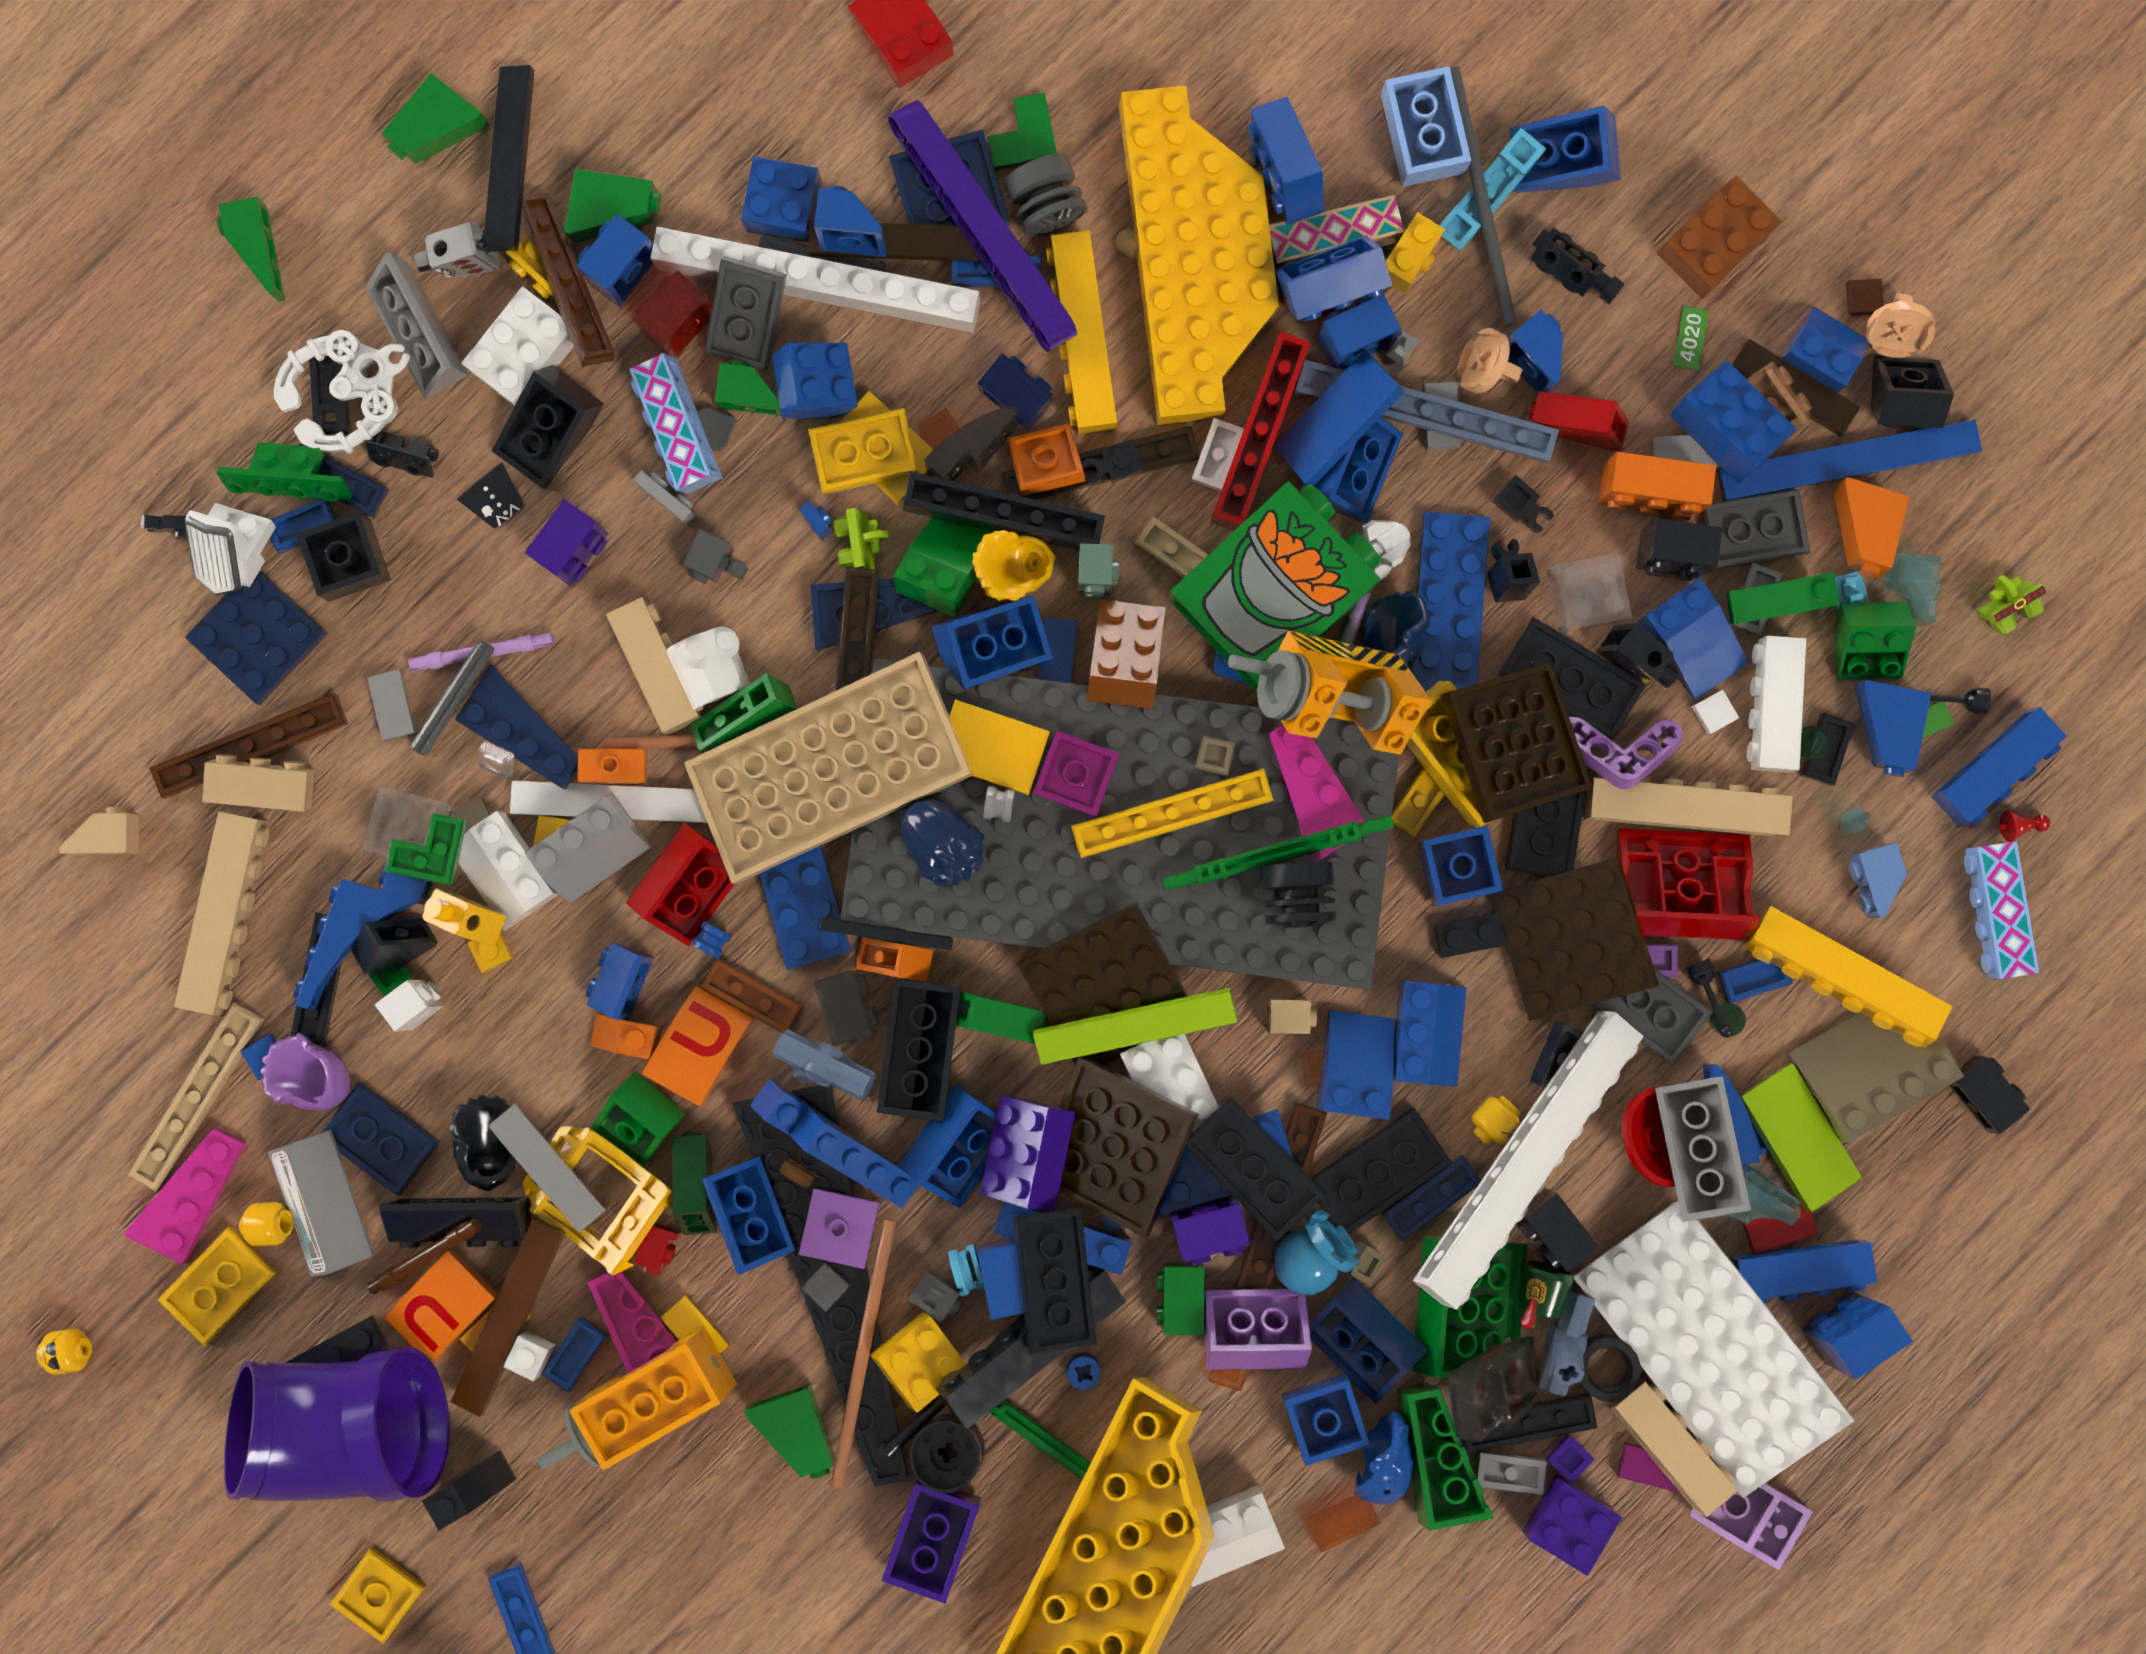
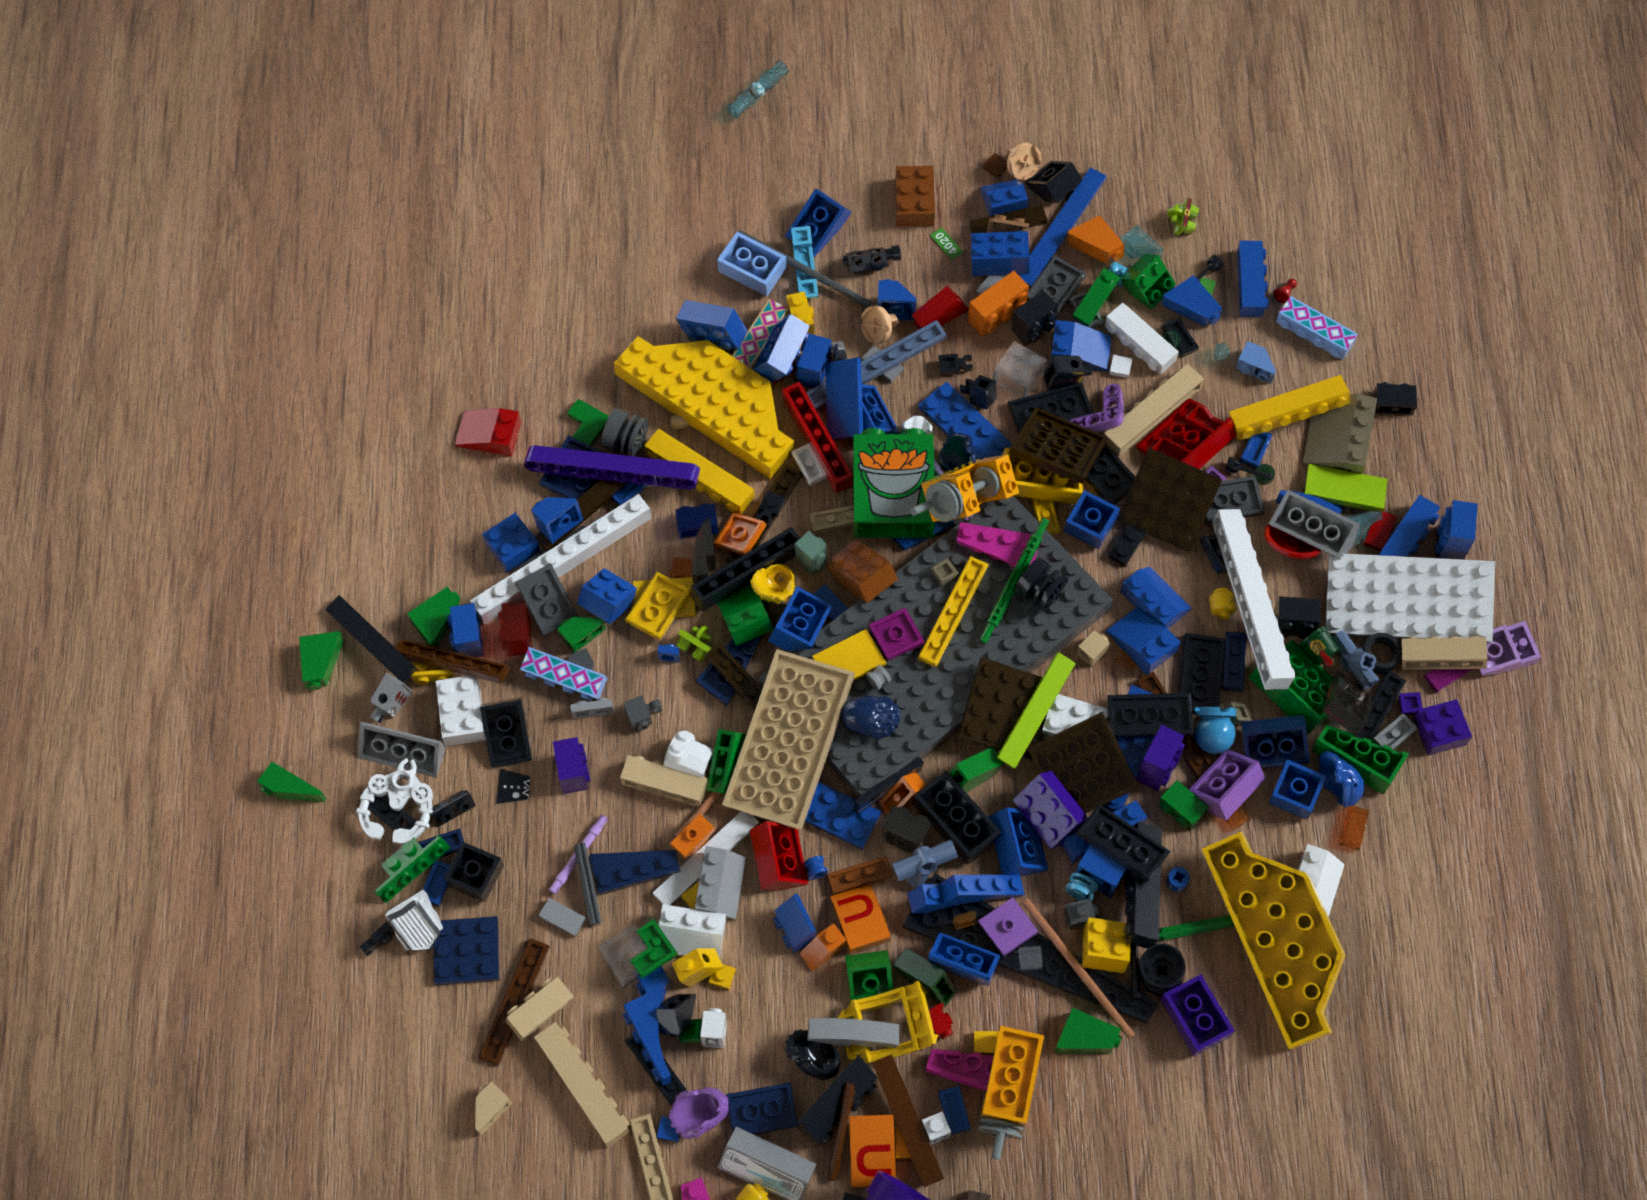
camera: 45 degrees left, 20 degrees down
(496, 760) = (636, 889): clear tile -> none

